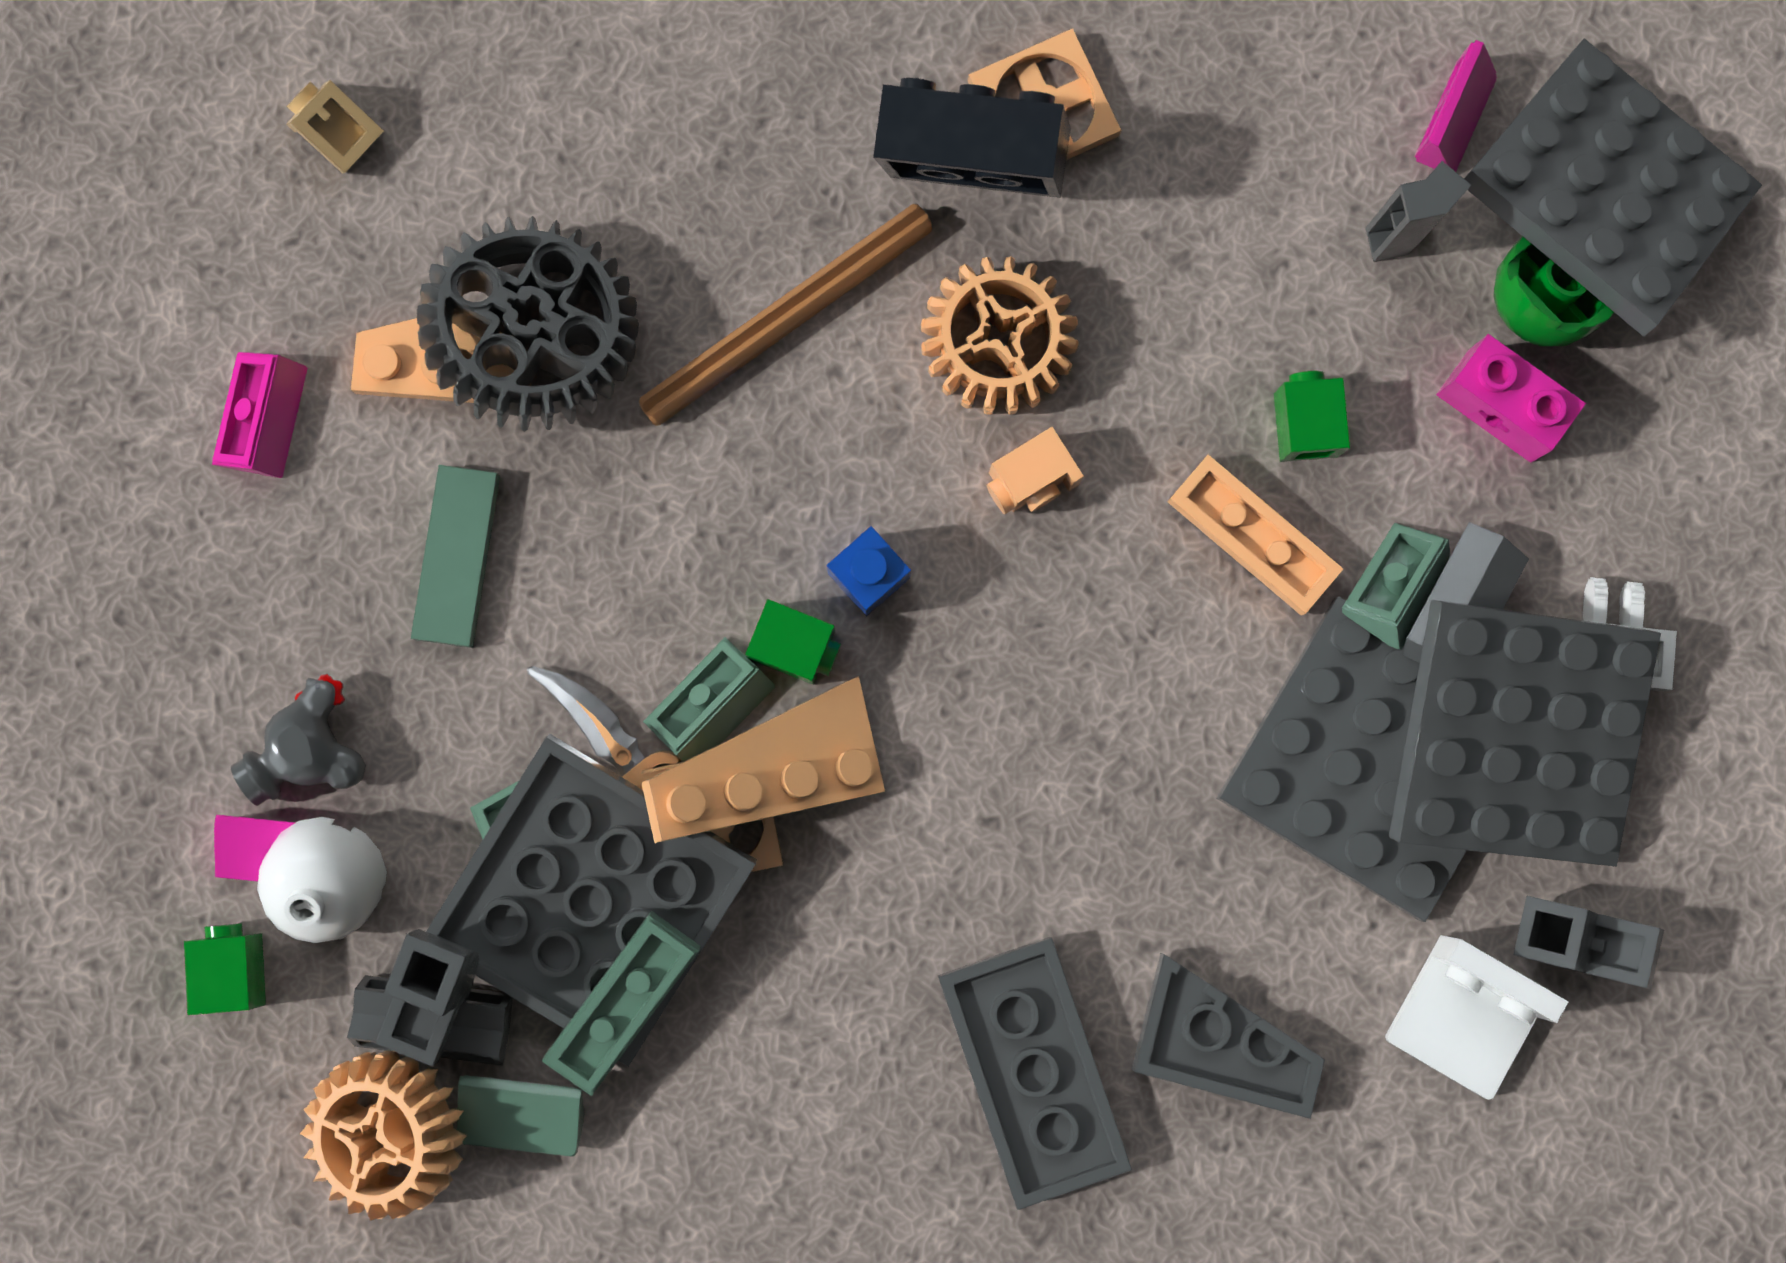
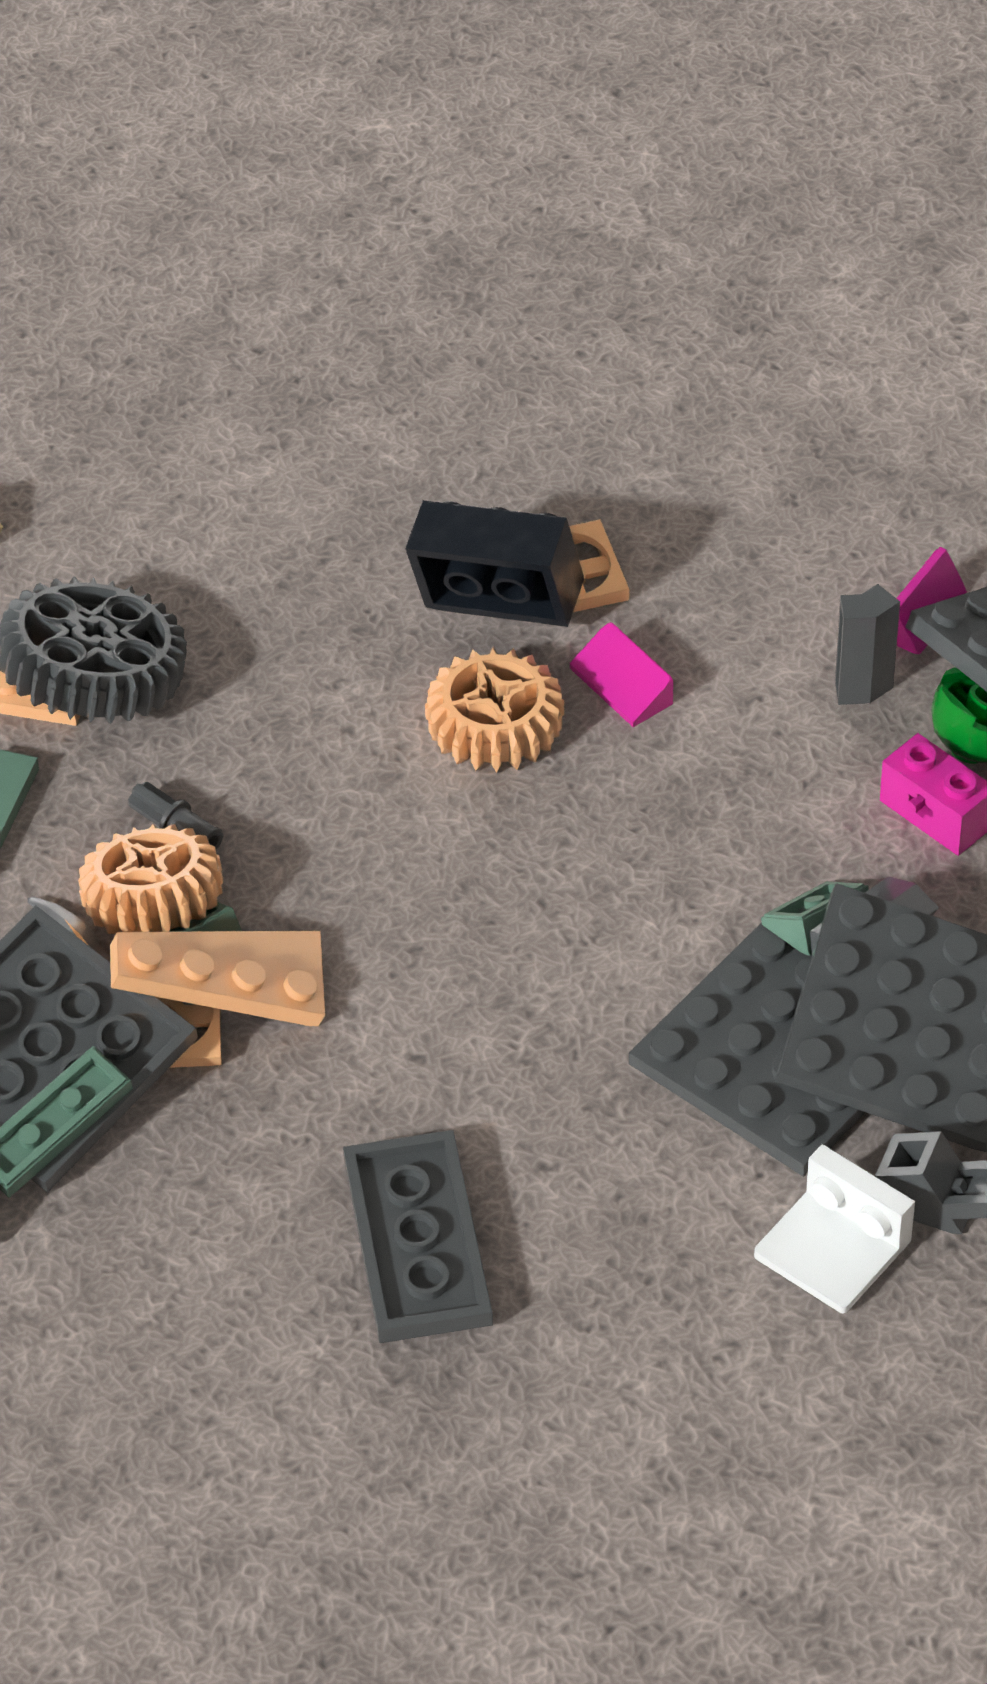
camera: 15 degrees right, 35 degrees down
(667, 537) = (165, 811): none -> dark grey axle
(680, 631) = (150, 880): none -> light nougat gear
(785, 314) = (312, 682): medium nougat axle -> none
(793, 643) = (266, 894): green brick -> none
(868, 571) = (344, 852): blue brick -> none
(1032, 473) = (505, 802): light nougat brick -> none
(1132, 260) = (623, 675): none -> dark pink slope
(1219, 1046) = (591, 1236): dark grey wing -> none
(1255, 535) = (696, 870): light nougat plate -> none
(1311, 417) = (758, 793): green brick -> none

